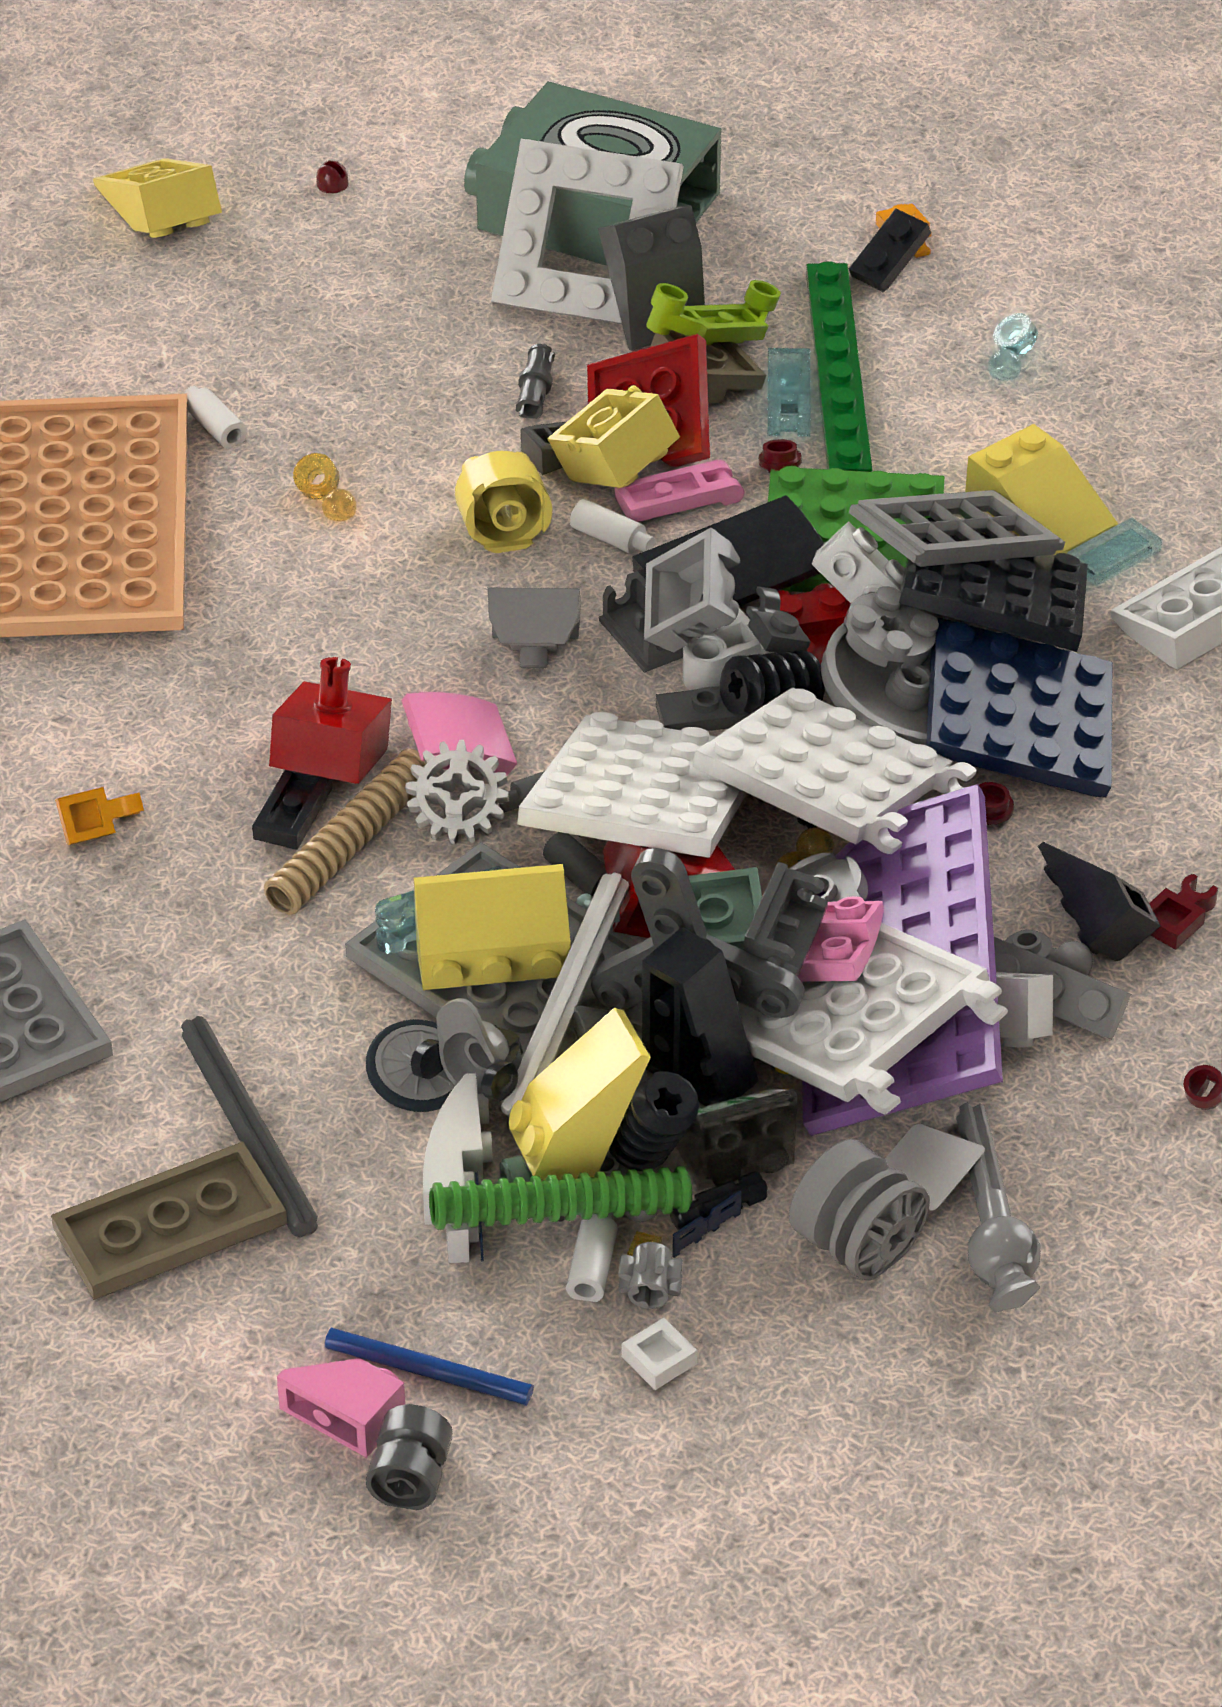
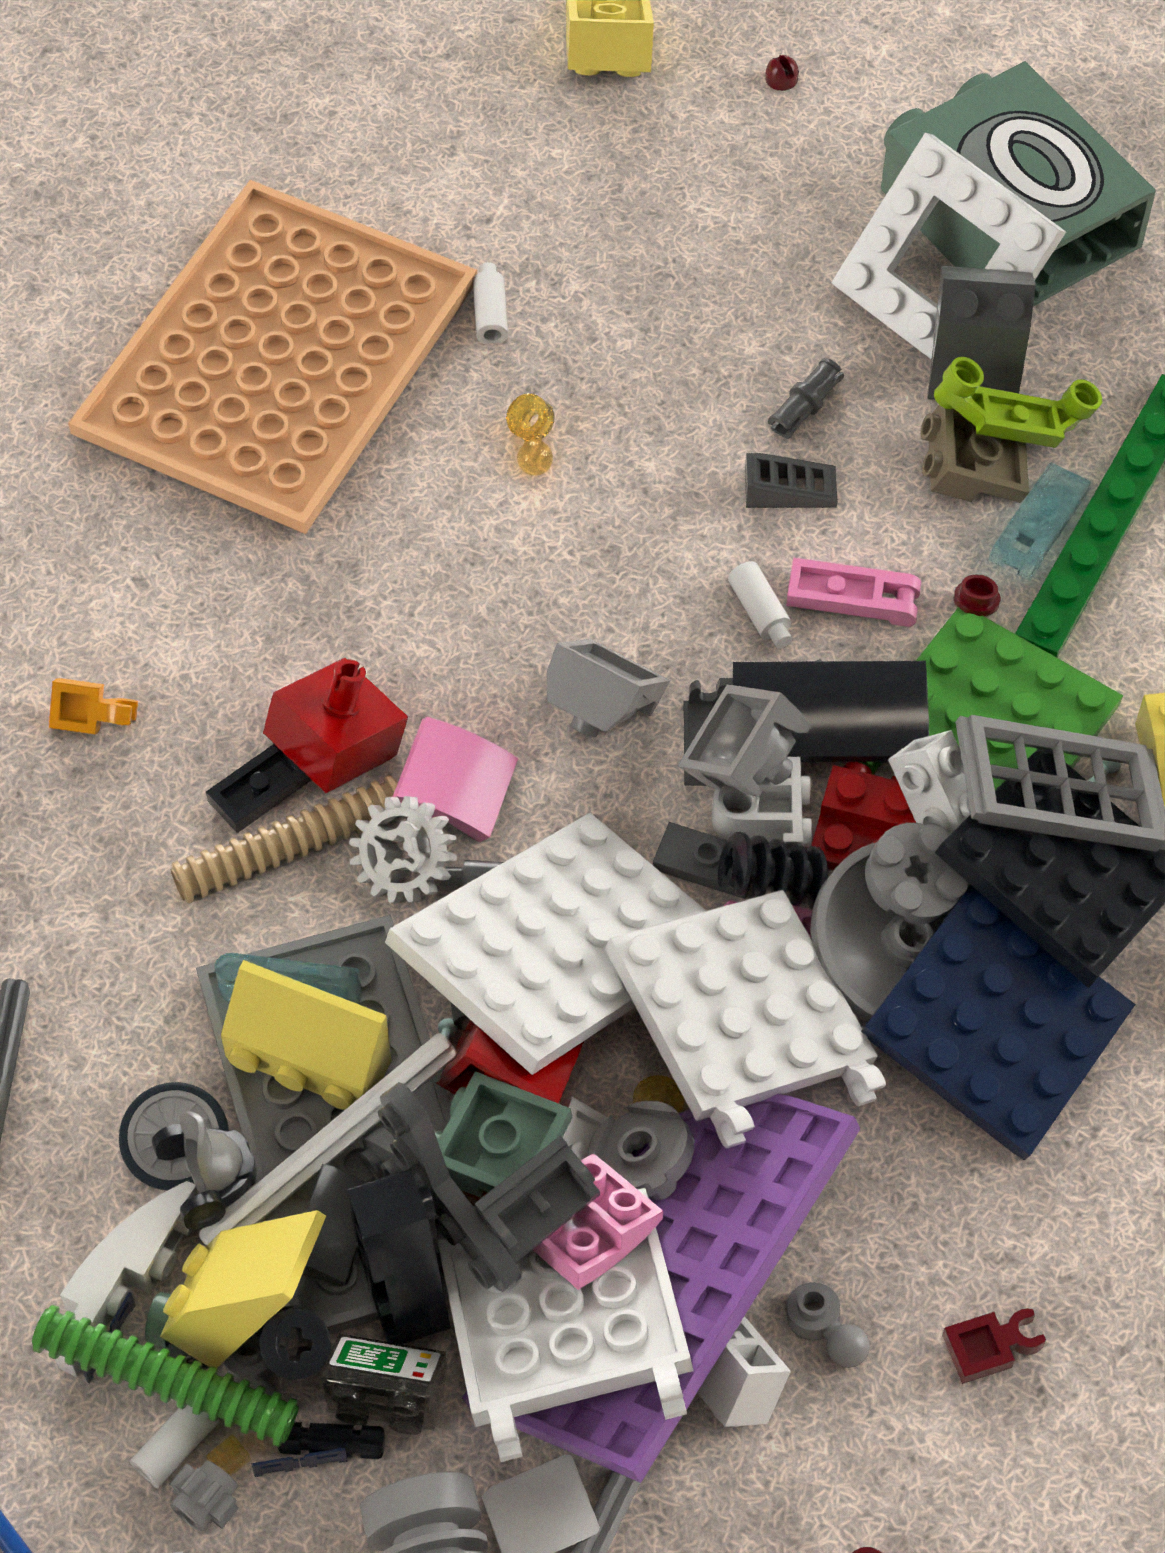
camera: 30 degrees right, 15 degrees up
(503, 500) = (669, 531): light yellow brick -> none
(614, 438) = (817, 509): light yellow brick -> none
(680, 379) = (897, 478): red plate -> none
(774, 628) = (812, 811): dark grey plate -> none
(997, 802) = (898, 1114): dark red plate -> none
(1075, 995) = (814, 1383): light grey plate -> none
(1106, 908) = (917, 1295): black slope -> none

